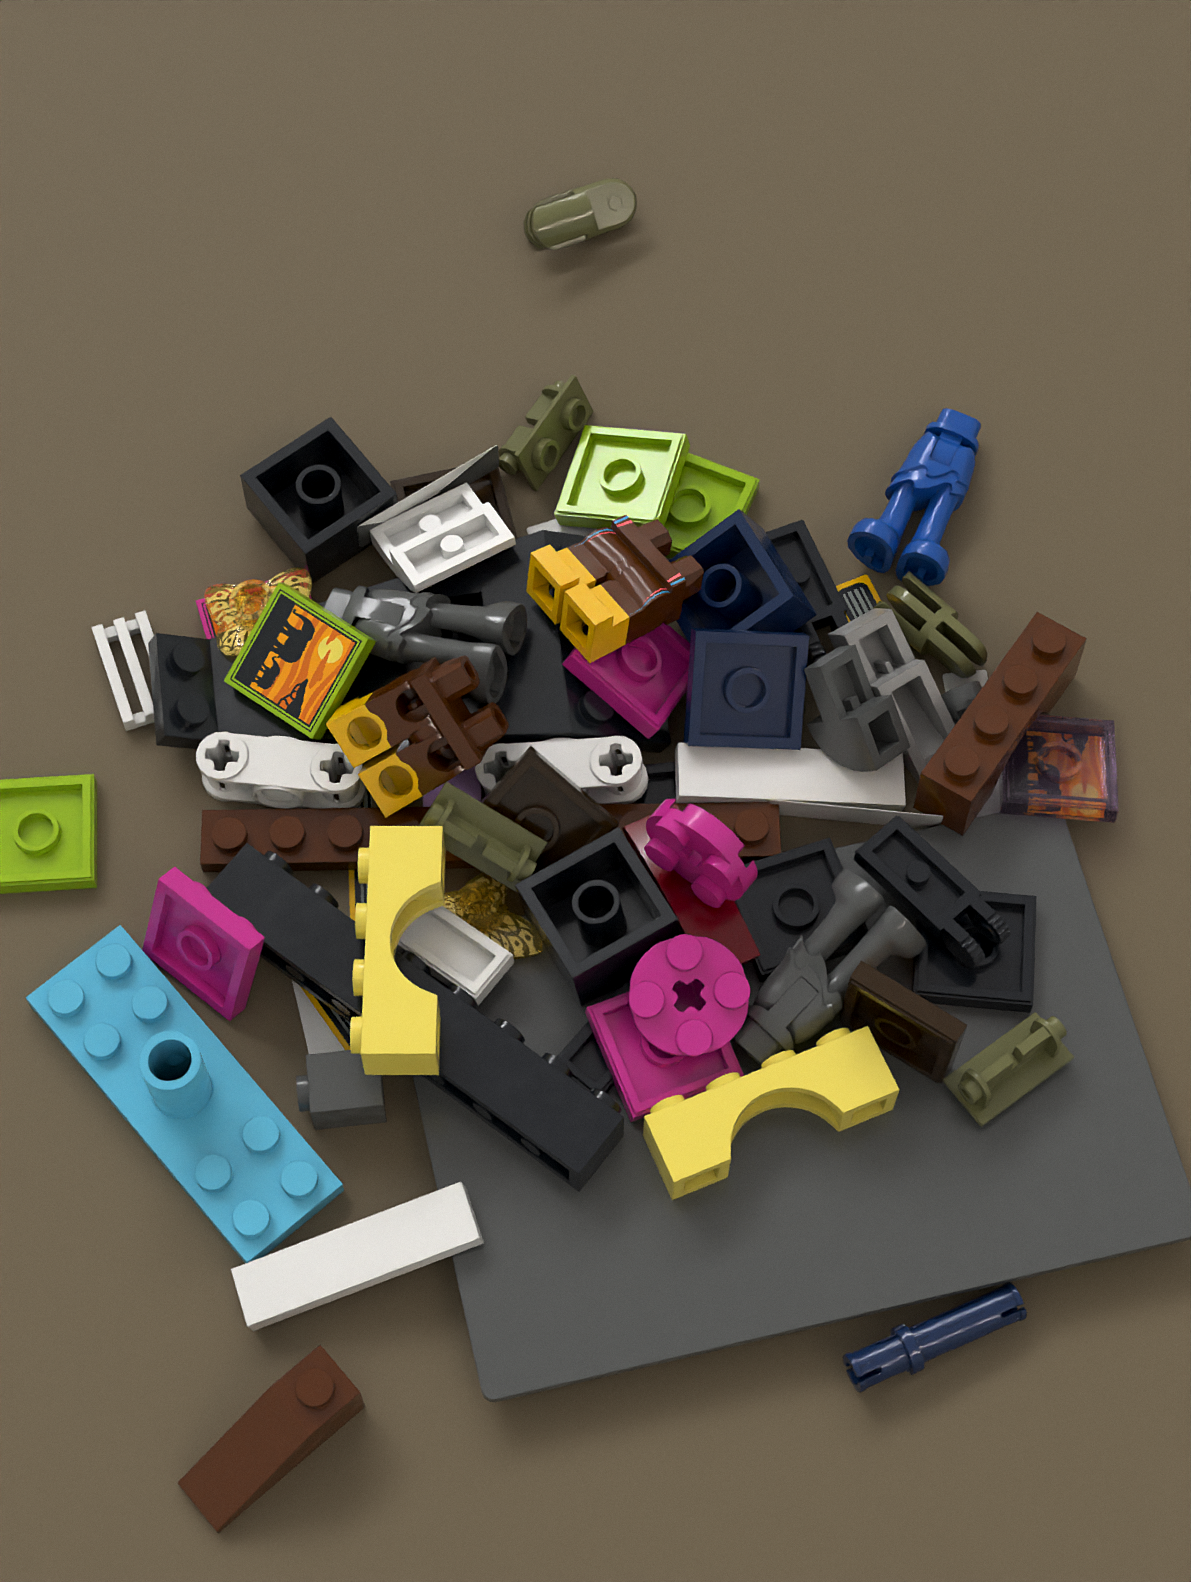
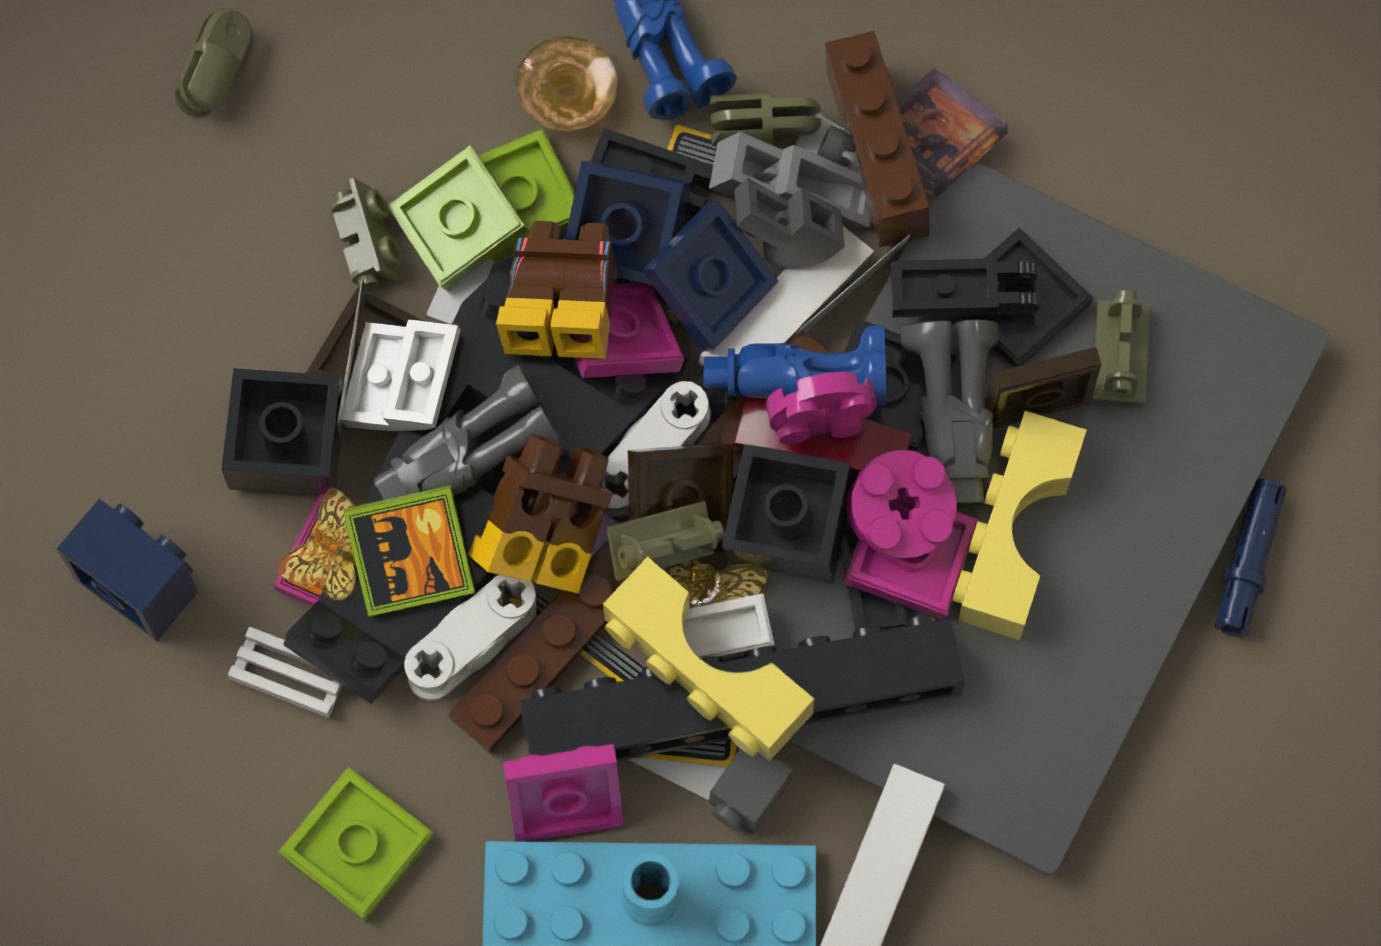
camera: 50 degrees left, 5 degrees up
(106, 483) = (129, 568): none -> dark blue brick
(781, 872) = (771, 366): none -> blue piece
(815, 444) = (566, 63): none -> clear yellow dish

